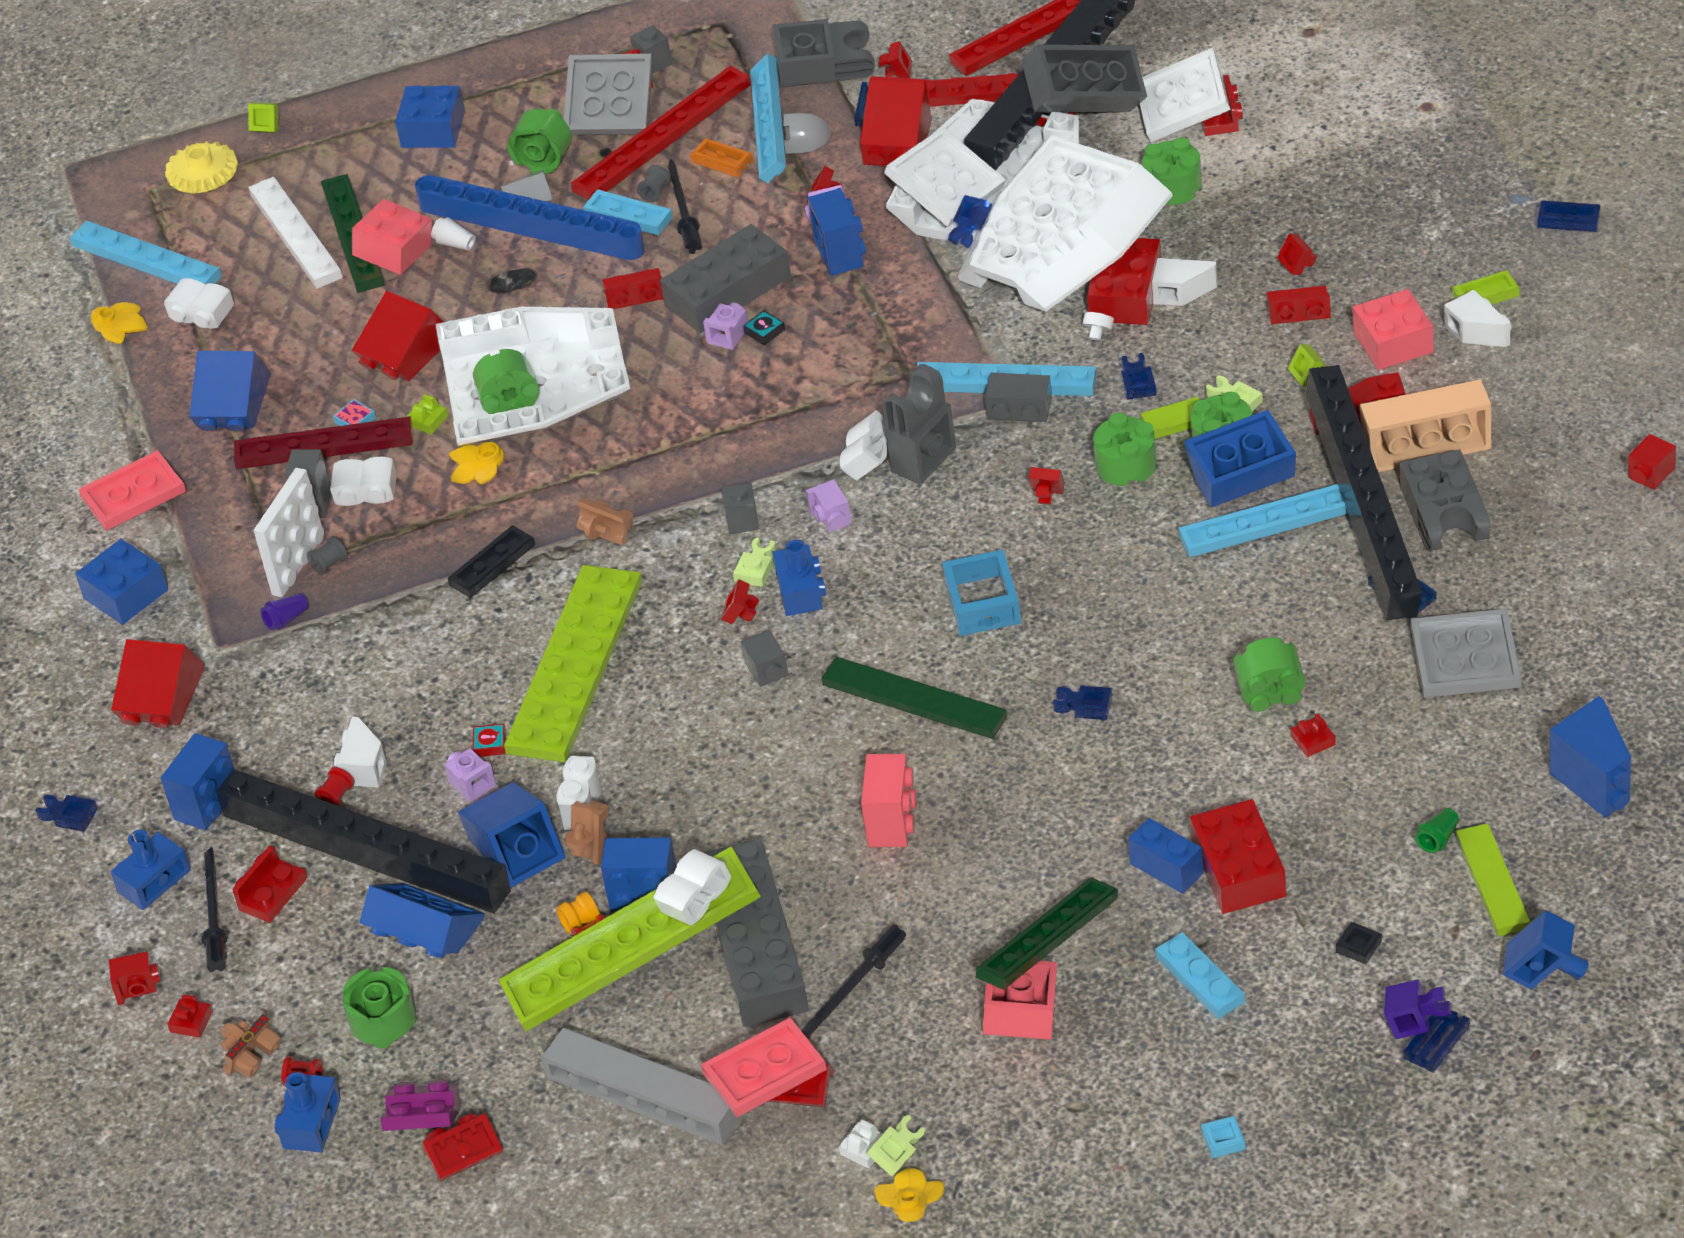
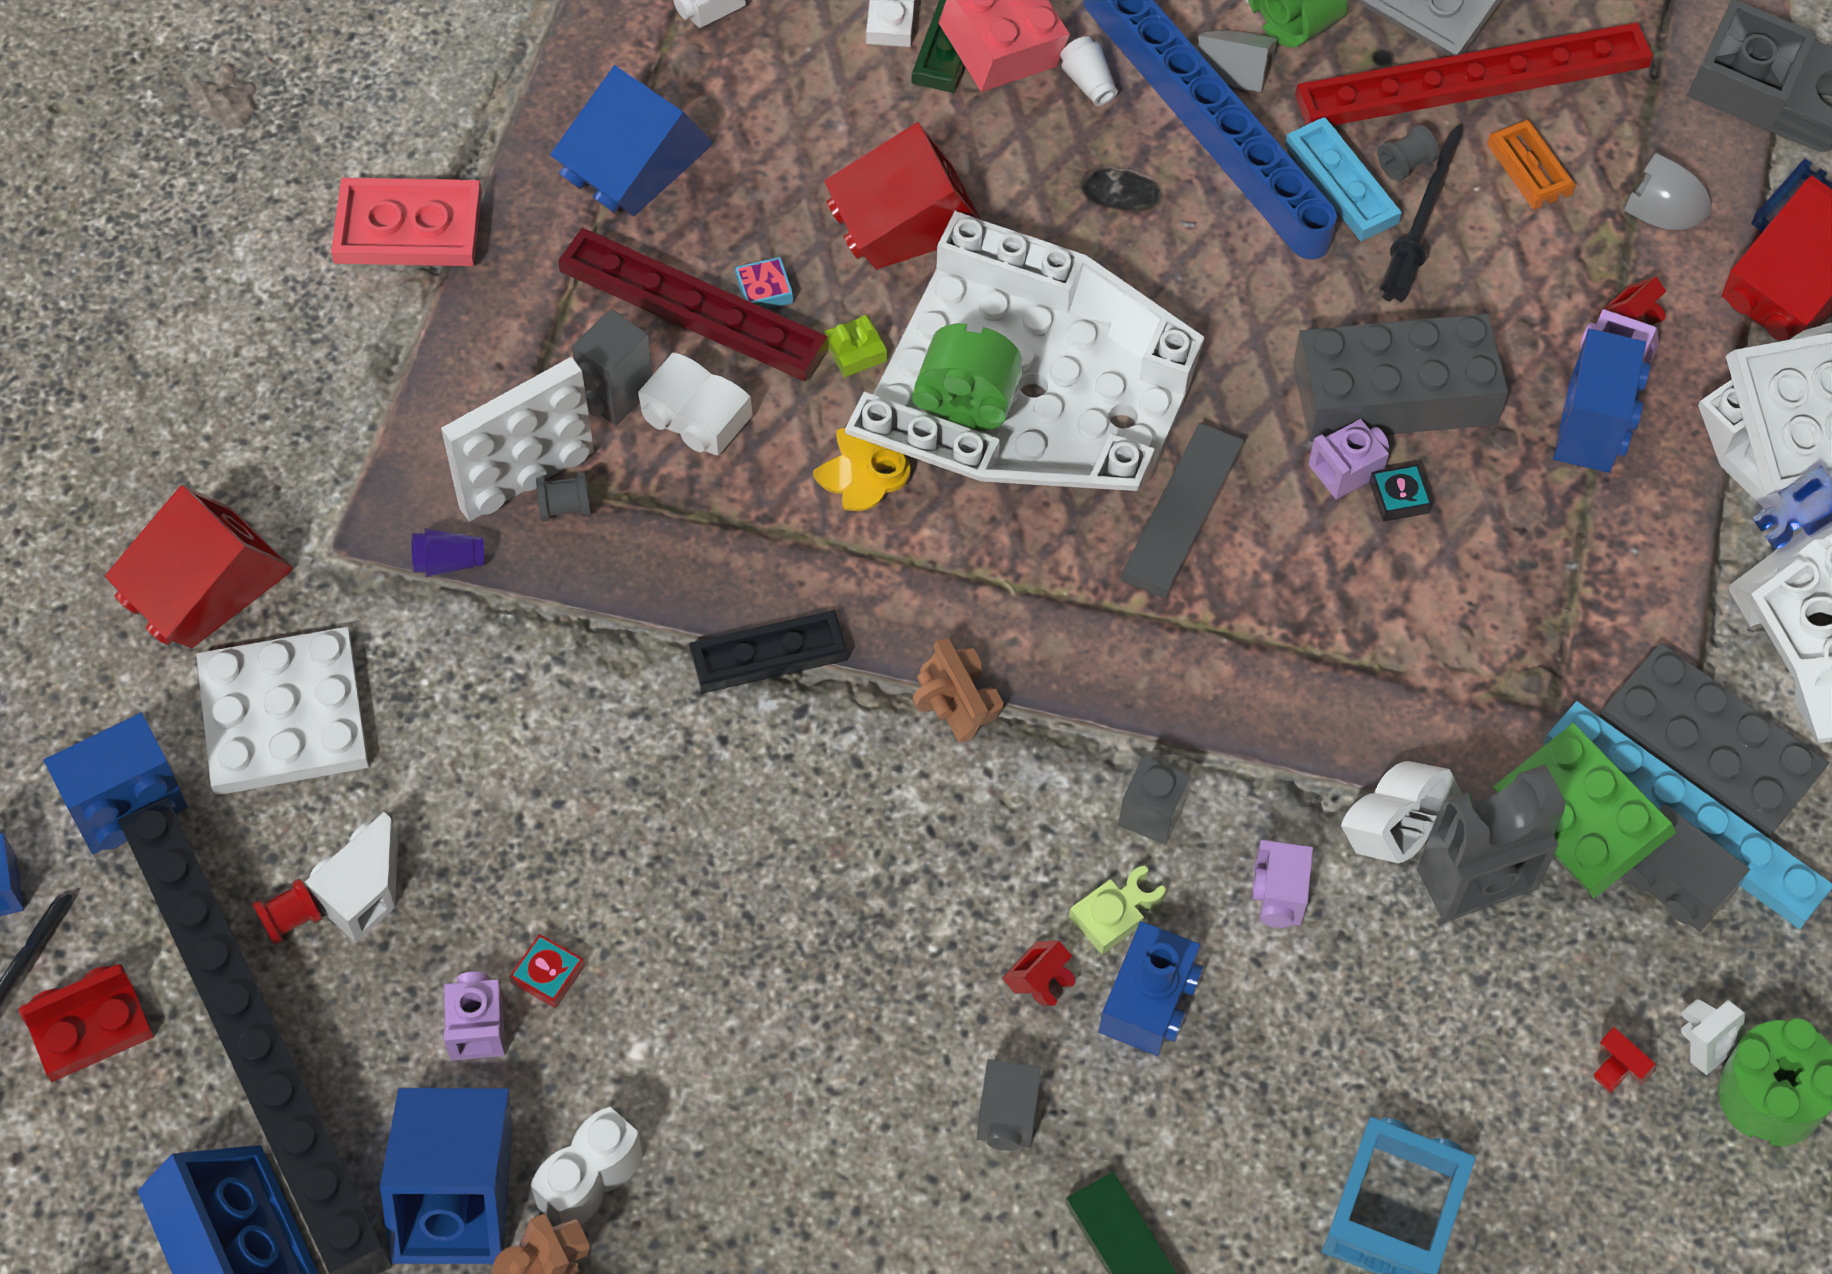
camera: 25 degrees right, 15 degrees up
(121, 581) = (281, 364): blue brick -> none
(255, 719) = (281, 711): none -> white plate
(573, 663) = (750, 914): lime plate -> none
(633, 288) = (1266, 309): red bracket -> none
(658, 393) = (1182, 510): none -> dark grey tile
(767, 118) = (1633, 141): medium azure plate -> none
(970, 394) = (1605, 818): none -> bright green plate
(996, 341) = (1714, 740): none -> dark grey plate
(1080, 450) = (1712, 1033): none -> white tile

